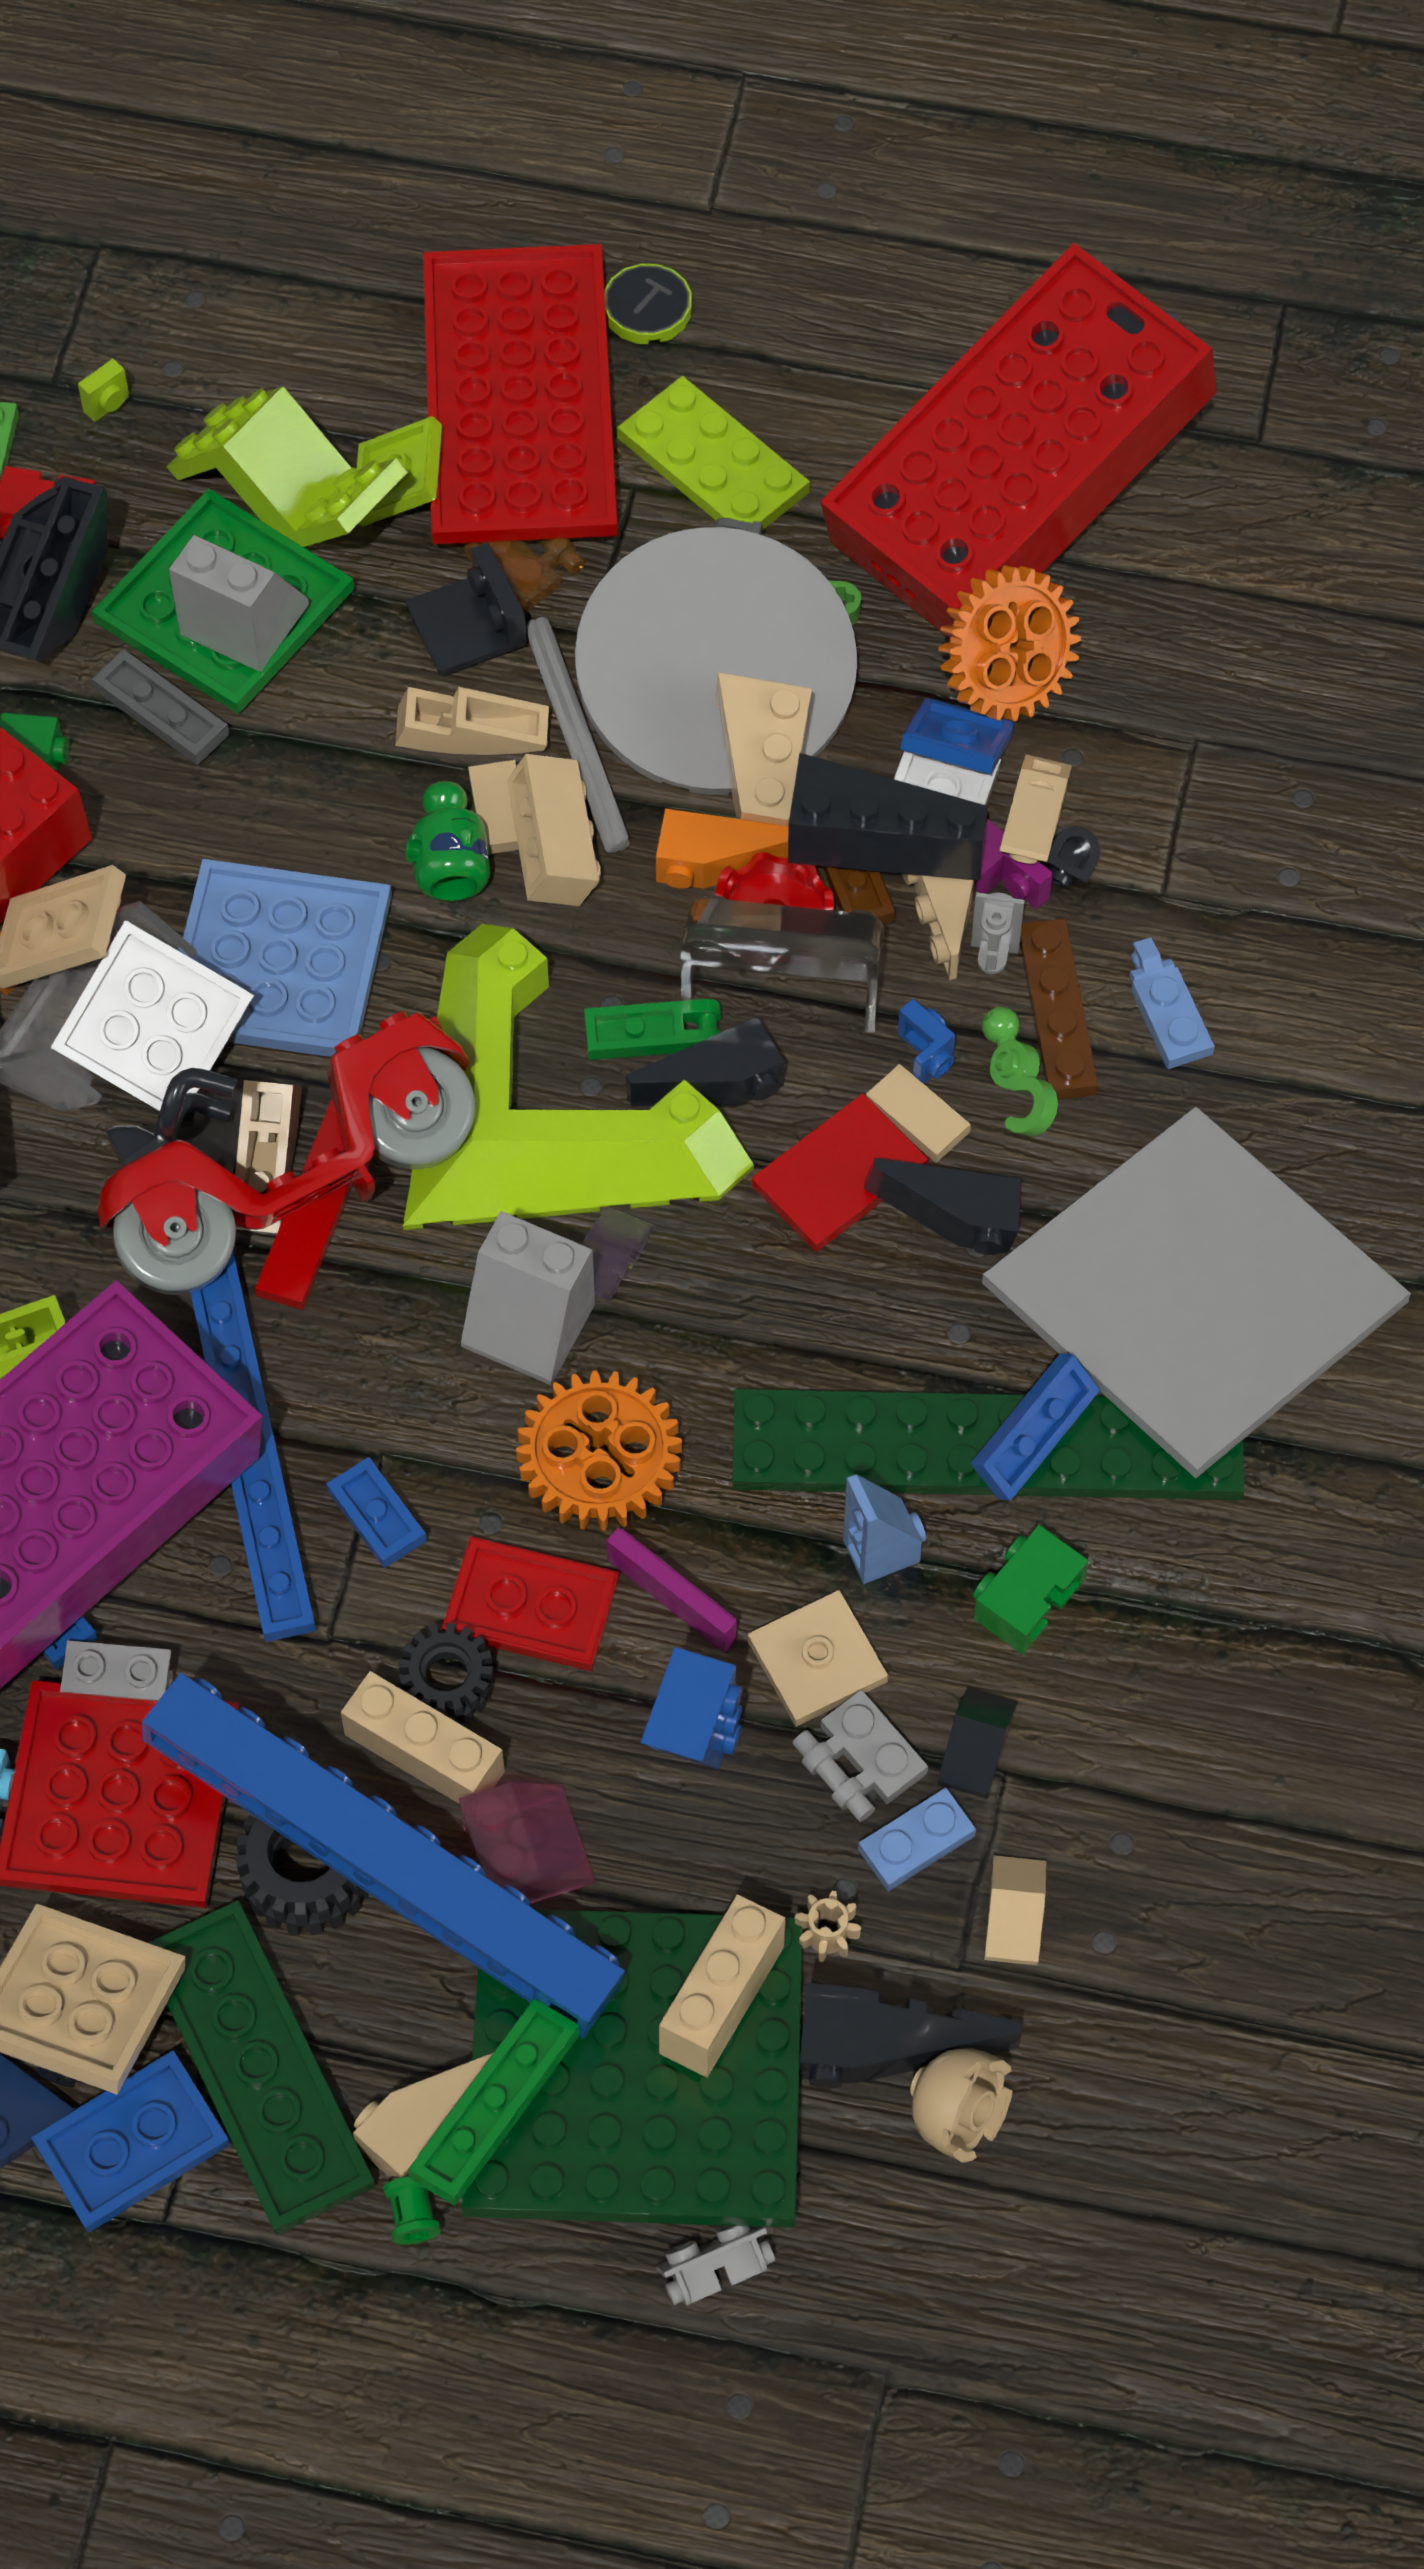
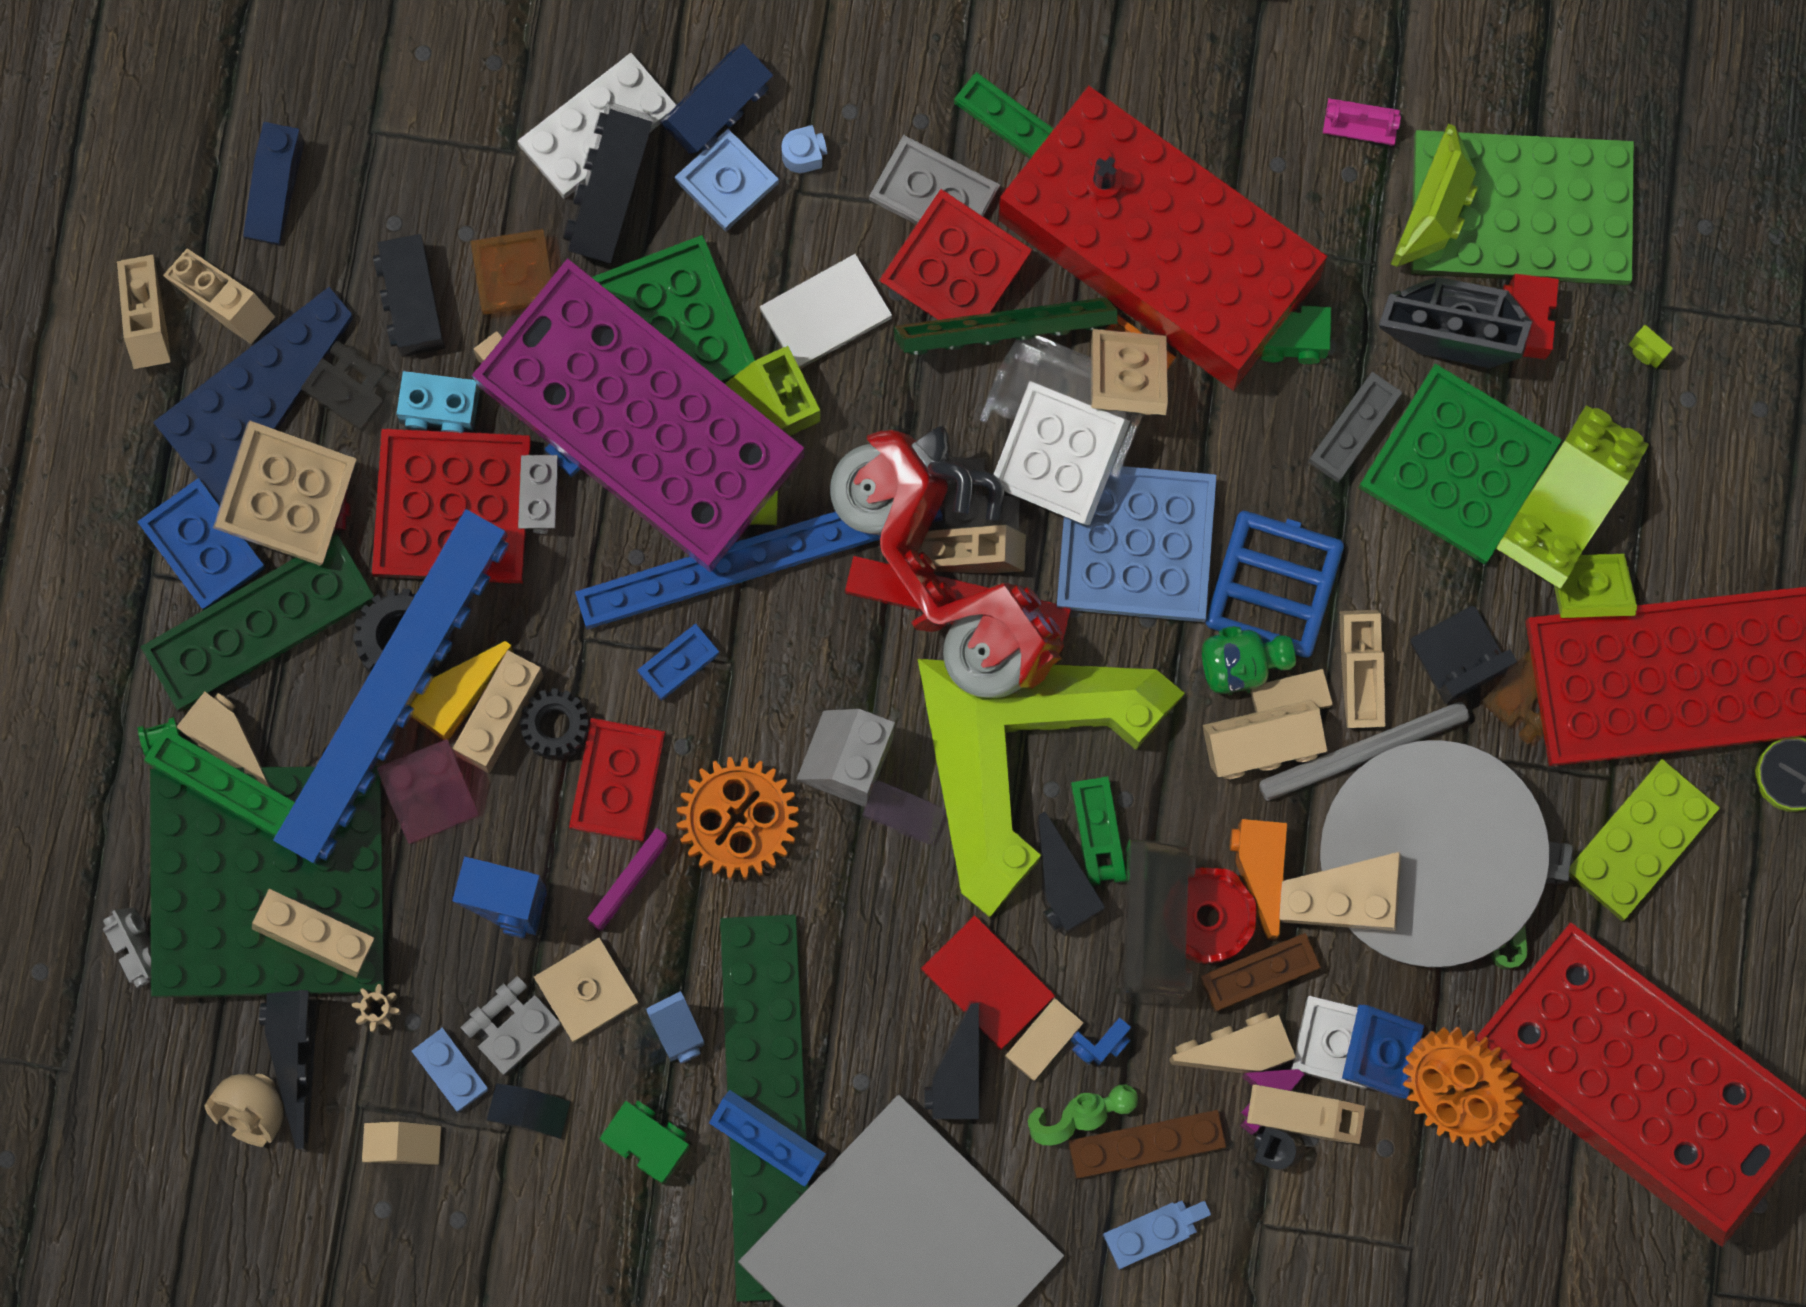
camera: 80 degrees right, 15 degrees up
(232, 603) = (1442, 471): light grey slope -> none
(307, 851) = (1236, 553): none -> blue bar
(380, 1776) = (456, 692): none -> yellow slope
(881, 824) = (1275, 985): black wedge -> none
(996, 929) = (1197, 1089): light grey hinge -> none

